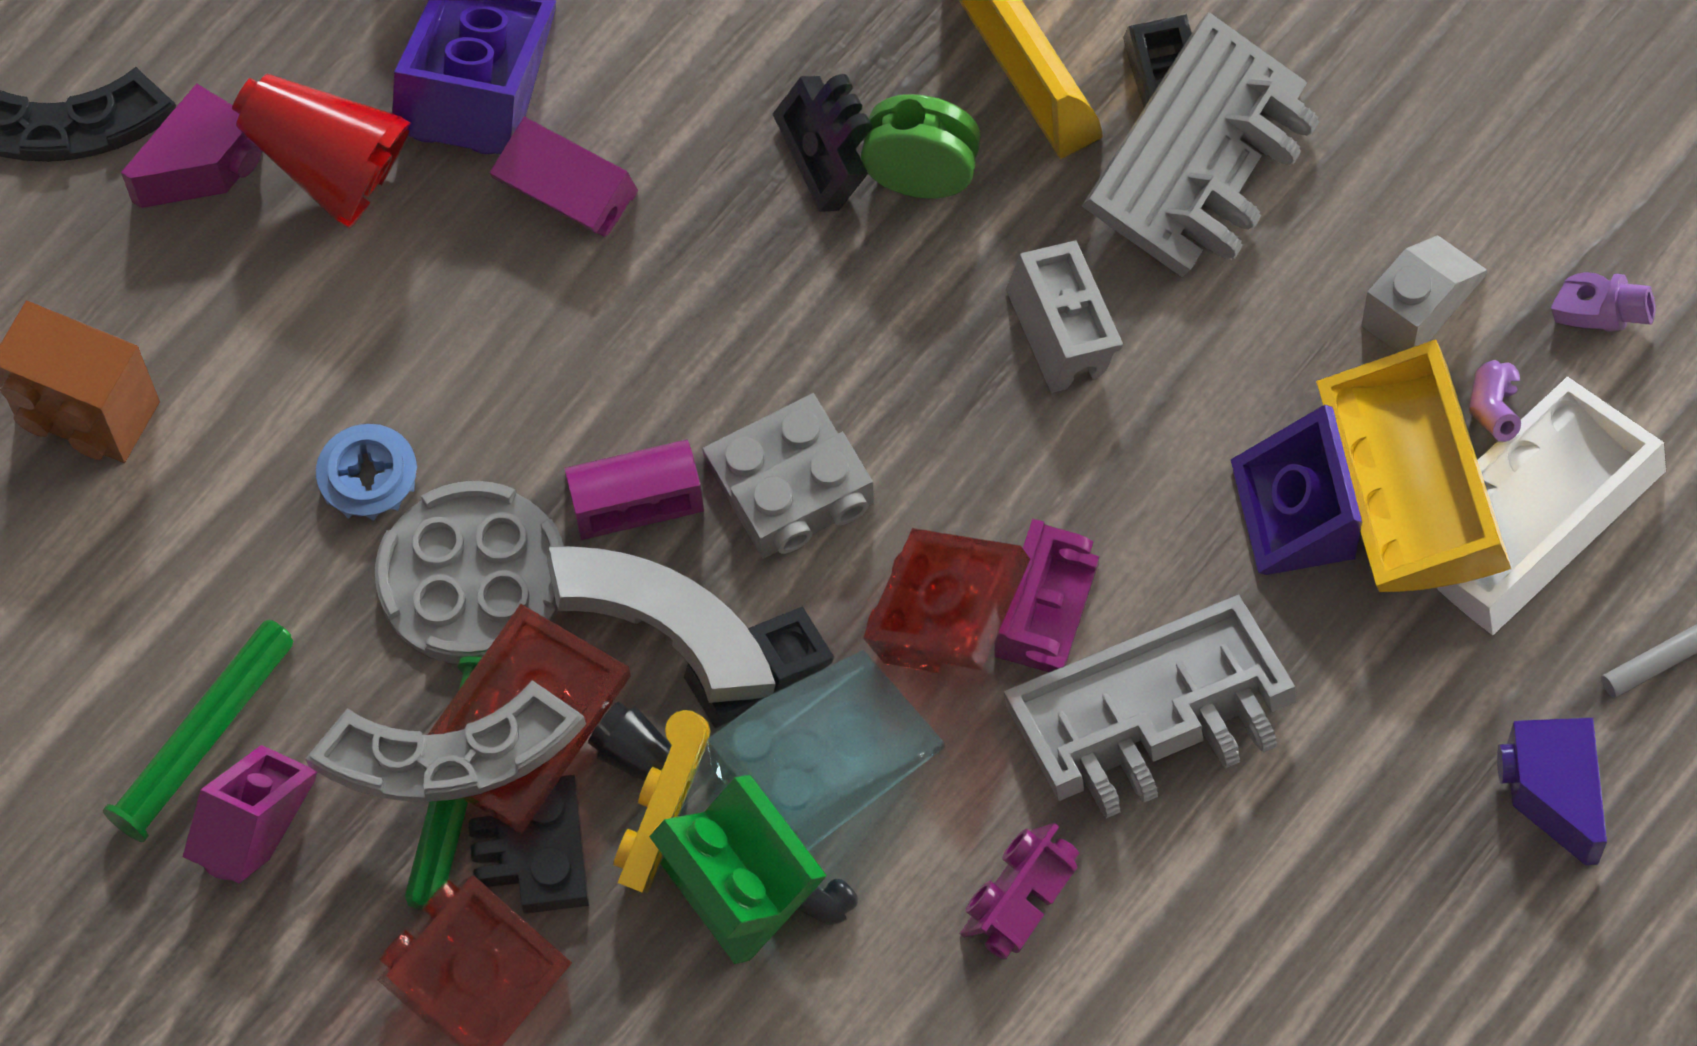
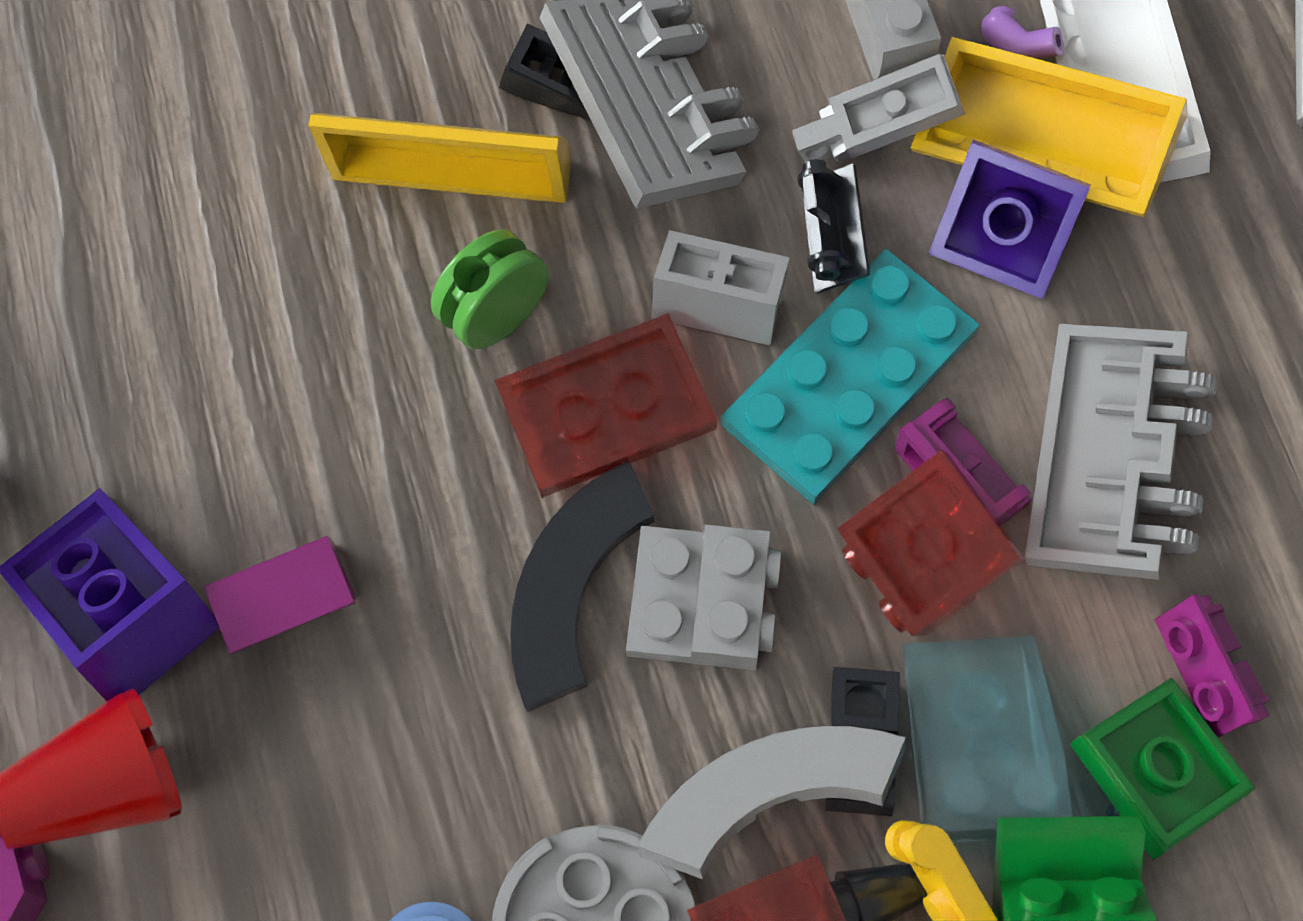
camera: 55 degrees left, 5 degrees up
(634, 489) = (618, 731): magenta brick -> none
(730, 360) = (556, 578): none -> black tile
(823, 135) = (416, 358): black hinge -> none
(896, 300) = (605, 405): none -> clear red plate
(898, 895) = (1162, 766): none -> green tile
(1069, 466) = (849, 376): none -> teal plate
(1168, 378) = (833, 225): none -> black hinge
(1323, 333) = (882, 112): none -> light grey hinge

